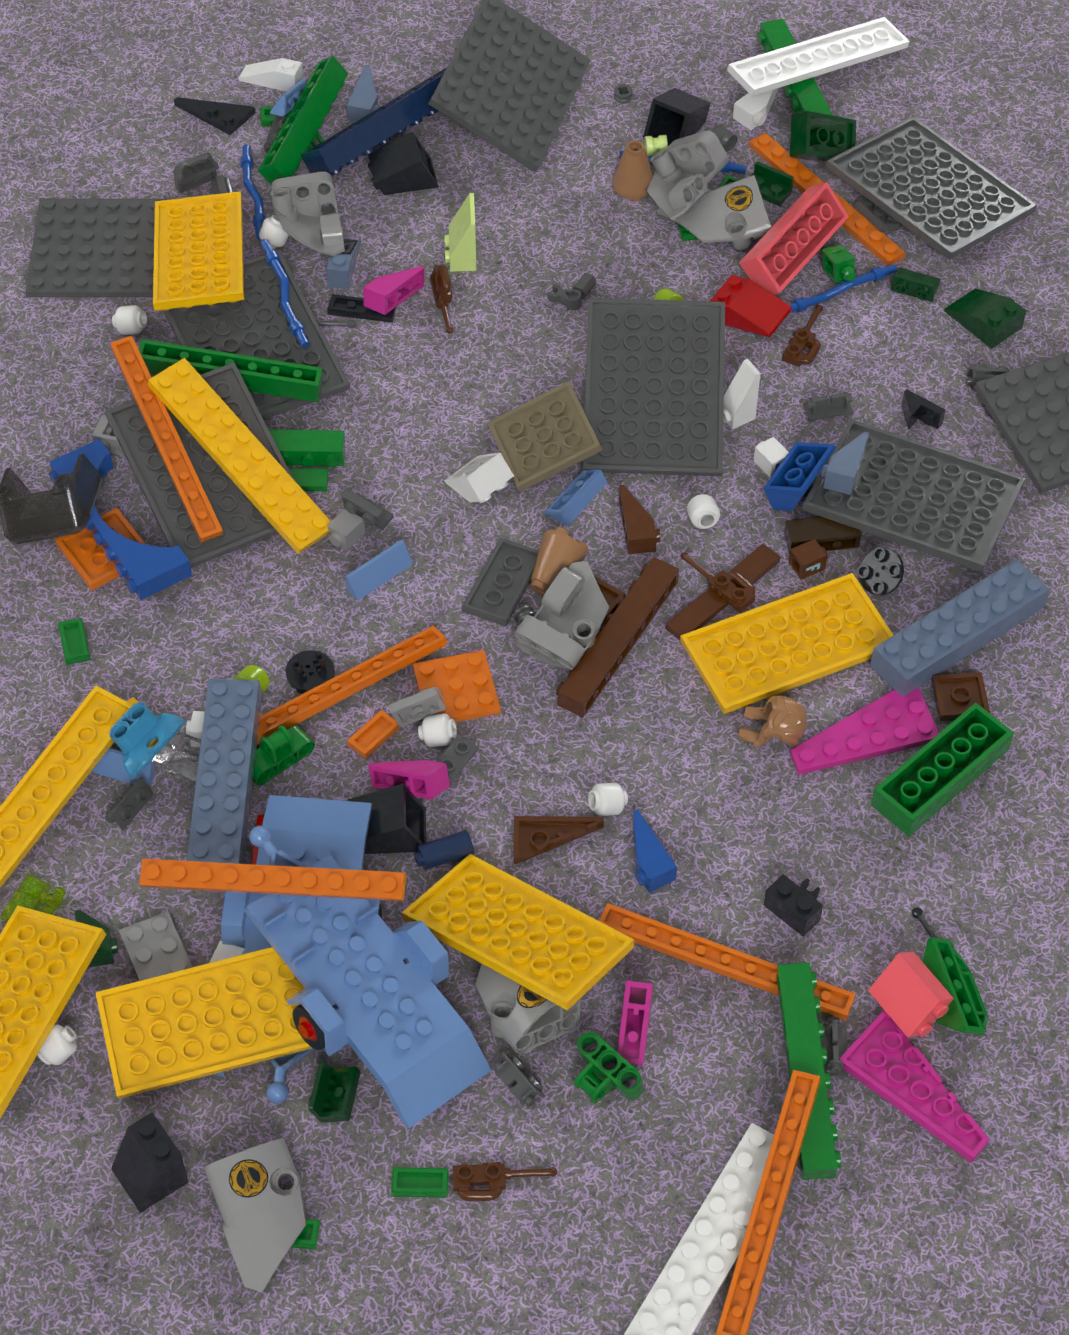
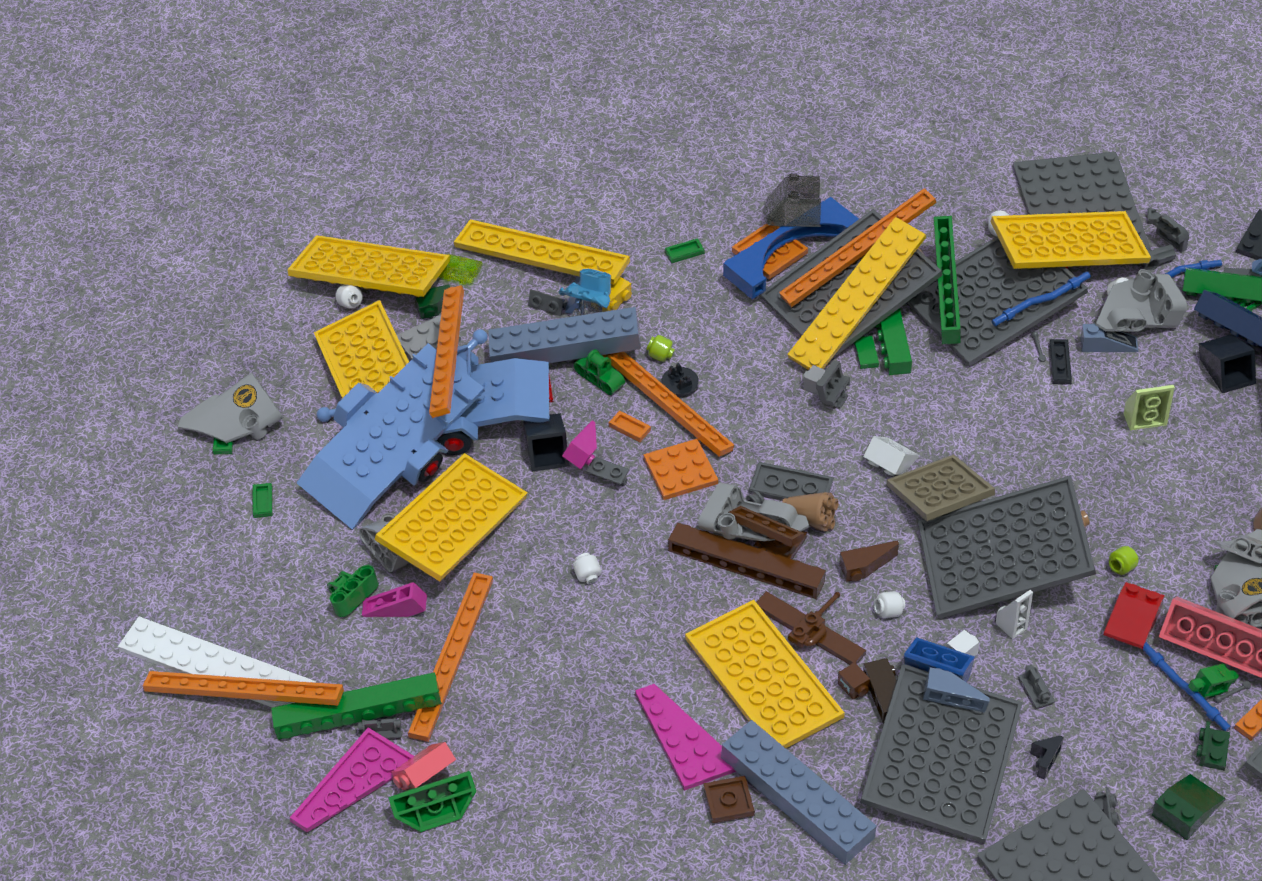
camera: 85 degrees right, 5 degrees down
(148, 1163) = (264, 354): black slope -> none
(156, 188) = (1152, 215): none -> dark grey tile
(333, 1092) = (318, 438): dark green bracket -> none
(378, 570) = (783, 406): medium blue slope -> none
(391, 290) = (1079, 372): dark pink slope -> none
(417, 706) = (648, 439): light grey bracket -> none
(437, 730) = (635, 459): white head -> none
(442, 294) = (1089, 407): reddish brown piece -> none
(444, 850) = (528, 477): dark blue brick -> none
(489, 1174) = (268, 539): reddish brown piece -> none
(526, 1087) = (343, 544): dark grey hinge -> none
(543, 833) = (551, 533): reddish brown wing -> none
(573, 297) = (1113, 496): dark grey bar -> none
(577, 496) = (890, 523): medium blue slope -> none
(589, 597) = (767, 526): none -> reddish brown plate
(652, 861) = (539, 598): blue slope -> none
(784, 719) = (673, 670): medium nougat hair -> none
(794, 904) = (503, 692): black brick -> none
(801, 339) = (1114, 663): reddish brown piece -> none
(874, 564) = (848, 731): black plate -> none
(917, 913) = (511, 781): black hinge -> none
(942, 769) = (646, 783): green brick -> none

